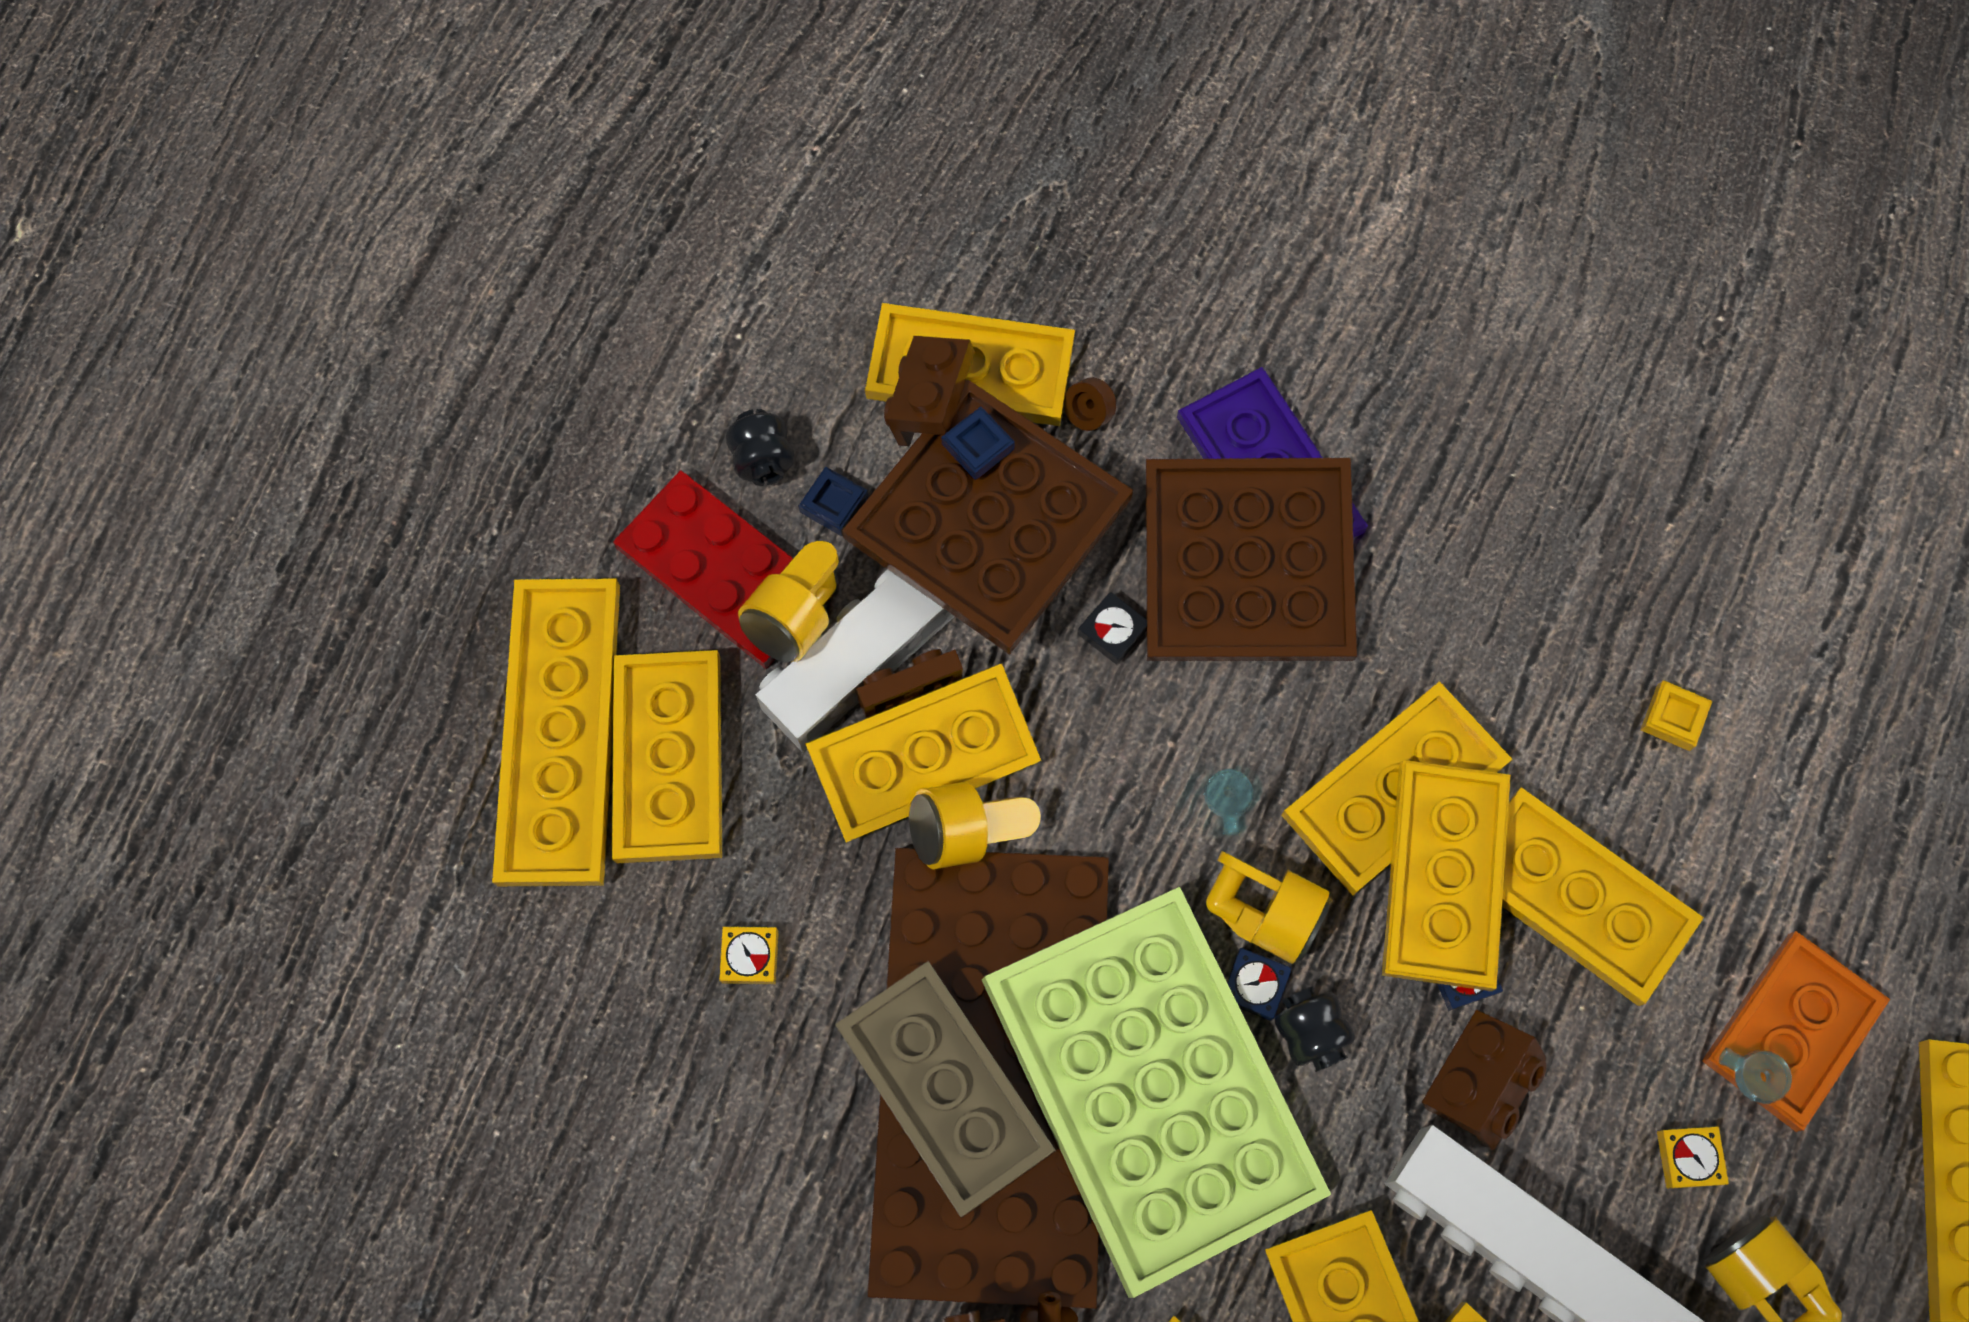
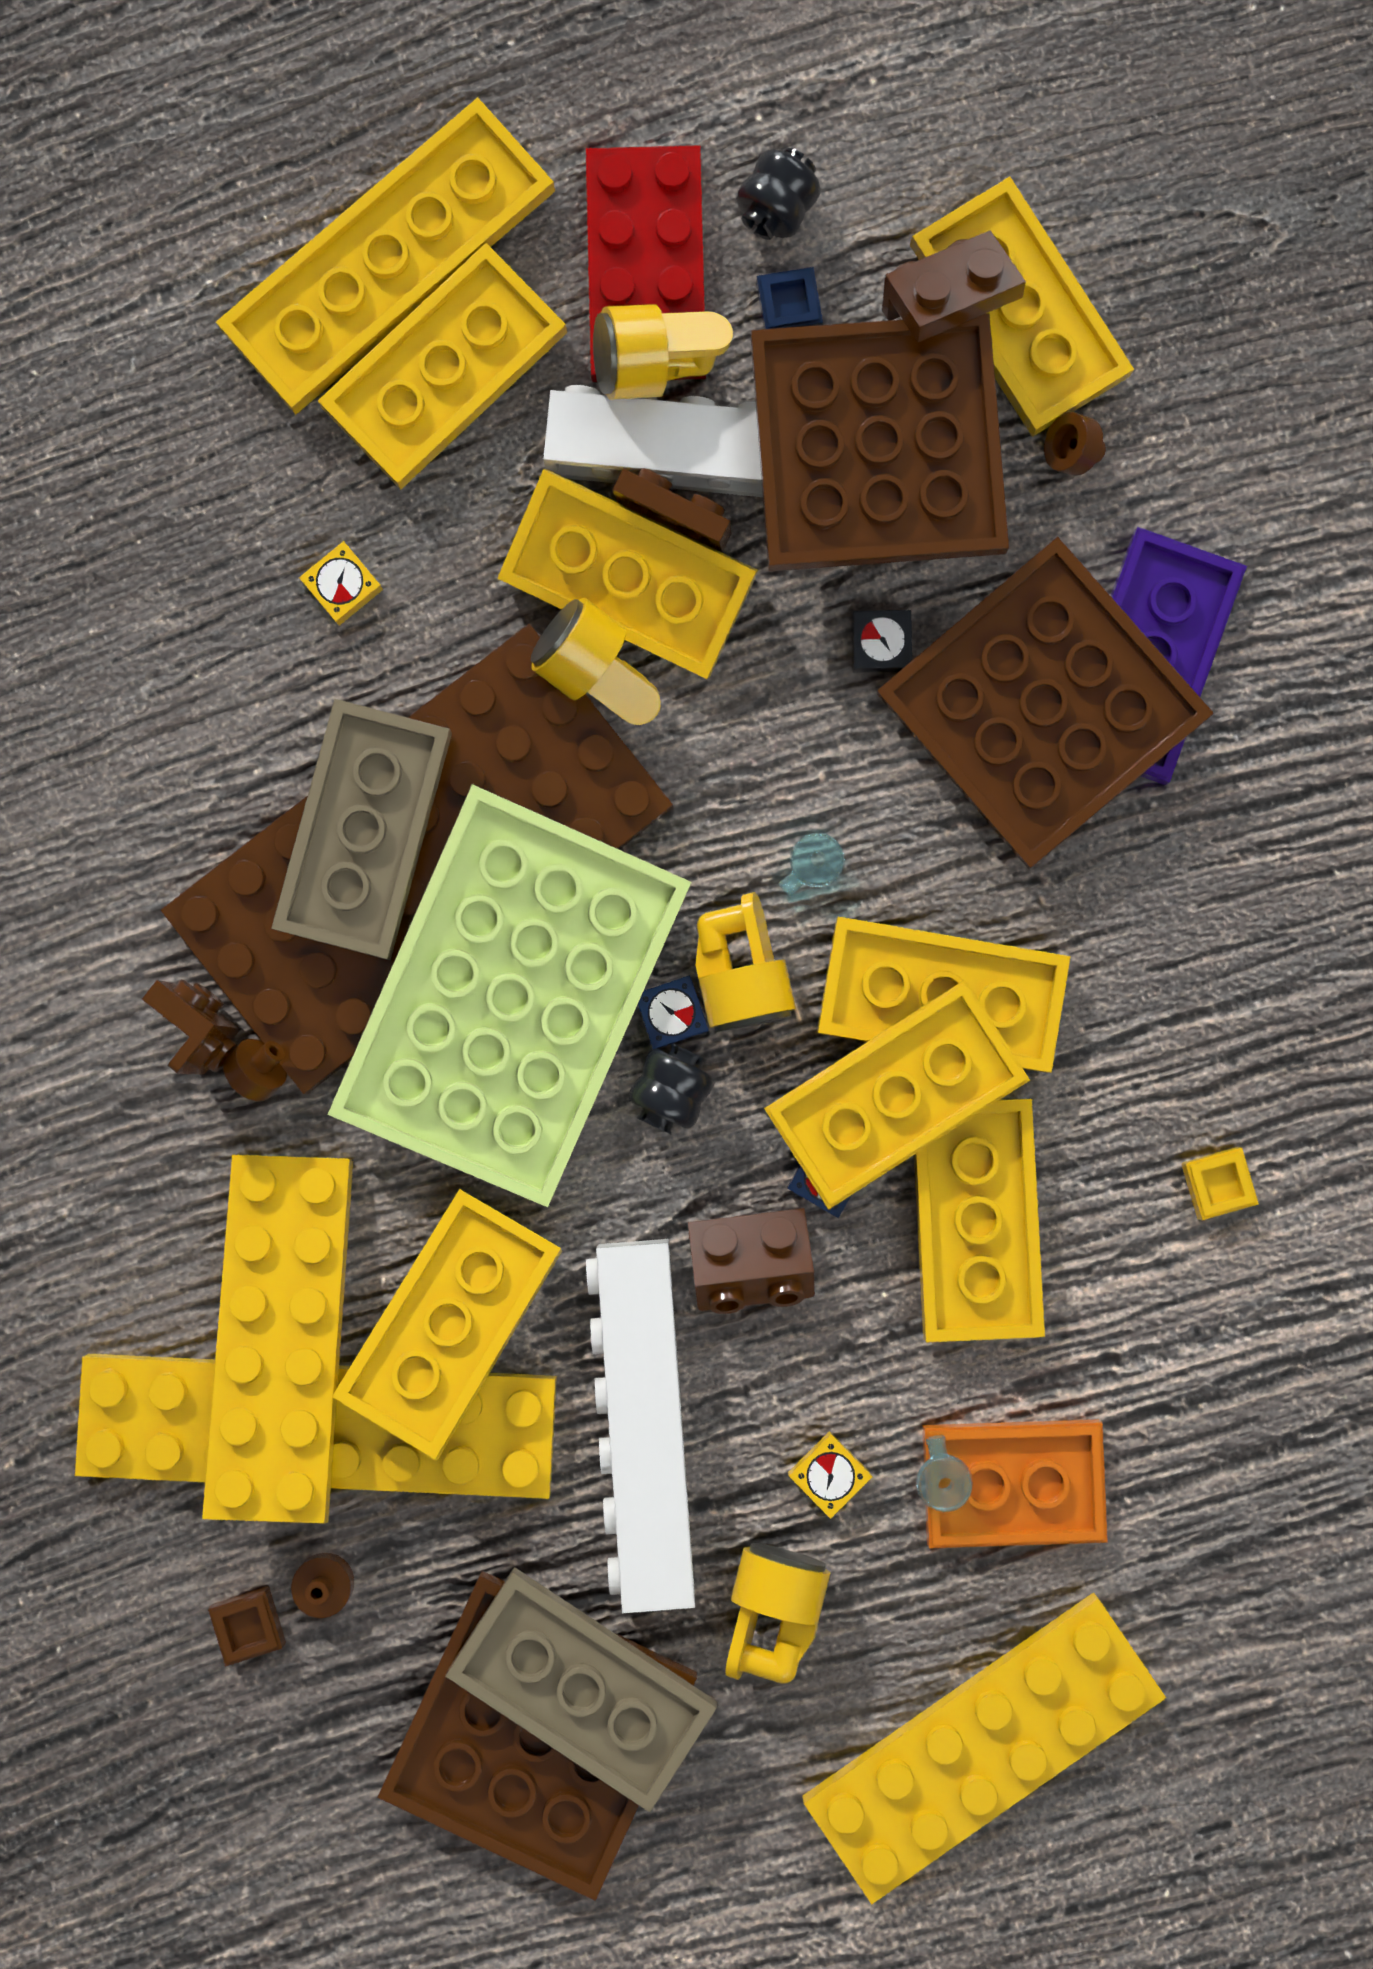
camera: 50 degrees right, 15 degrees up
(978, 443) = (933, 375): dark blue tile -> none

